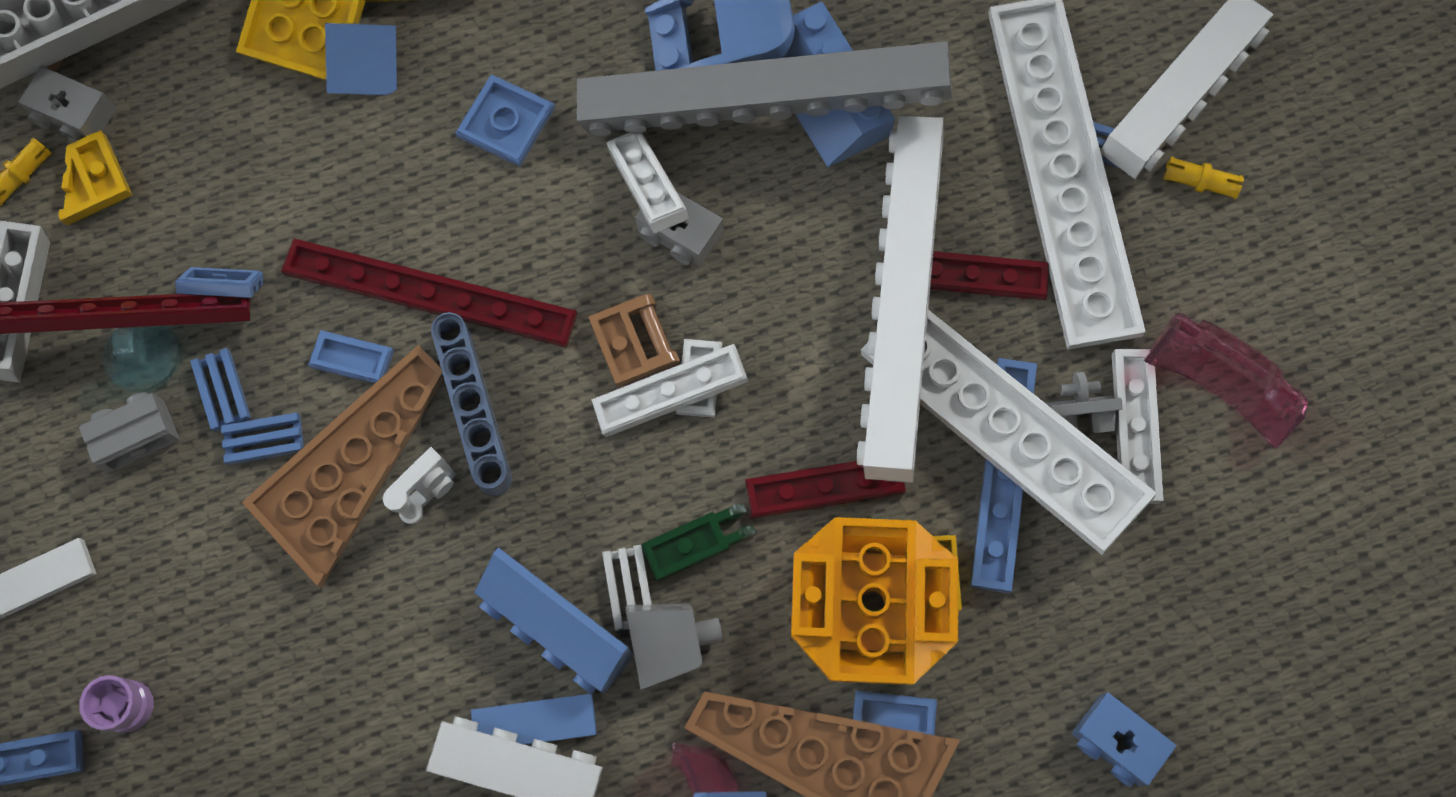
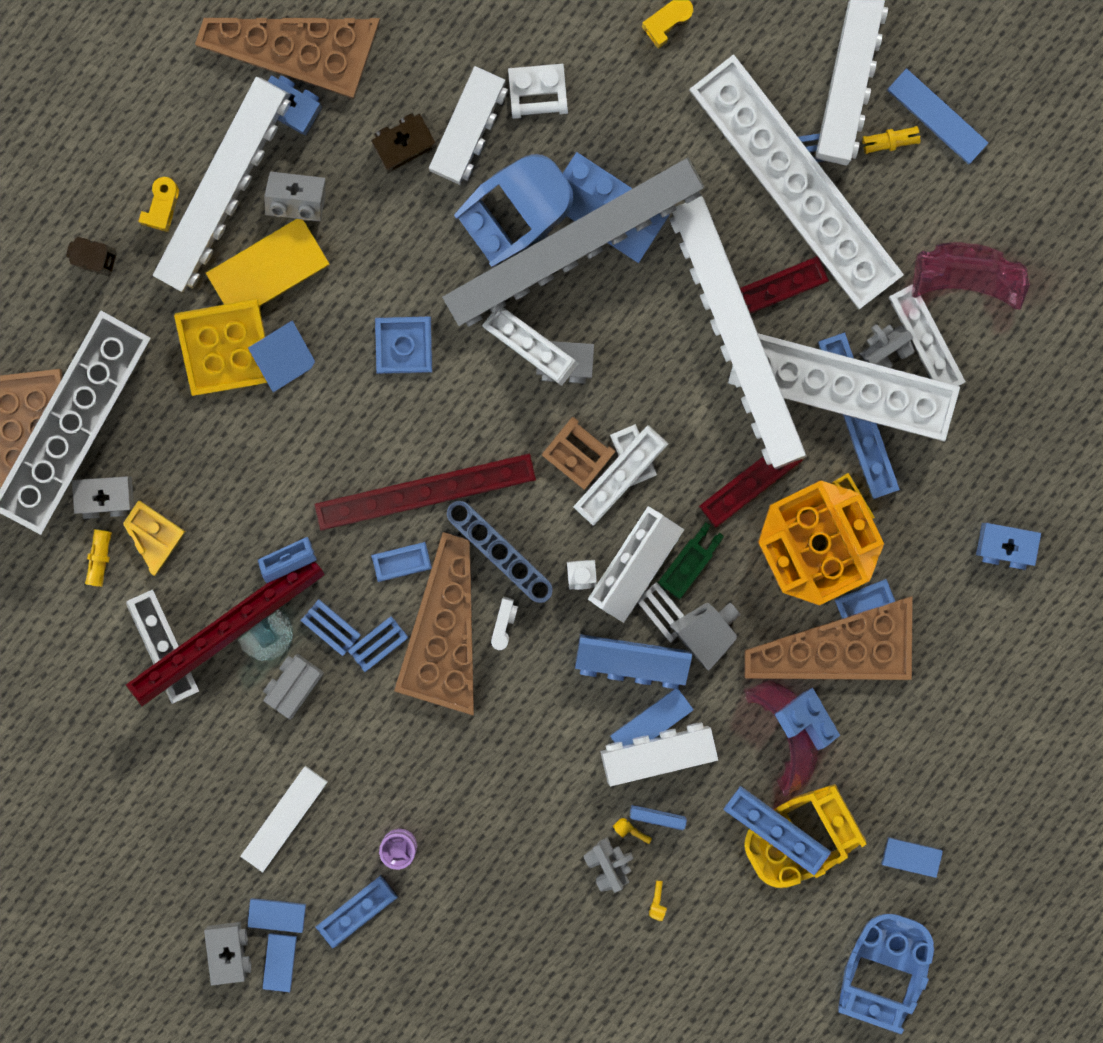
camera: 25 degrees left, 15 degrees up
(553, 483) = (581, 574): none -> white brick
(626, 506) = (635, 564): none -> white brick
(1273, 180) = (937, 116): none -> medium blue tile

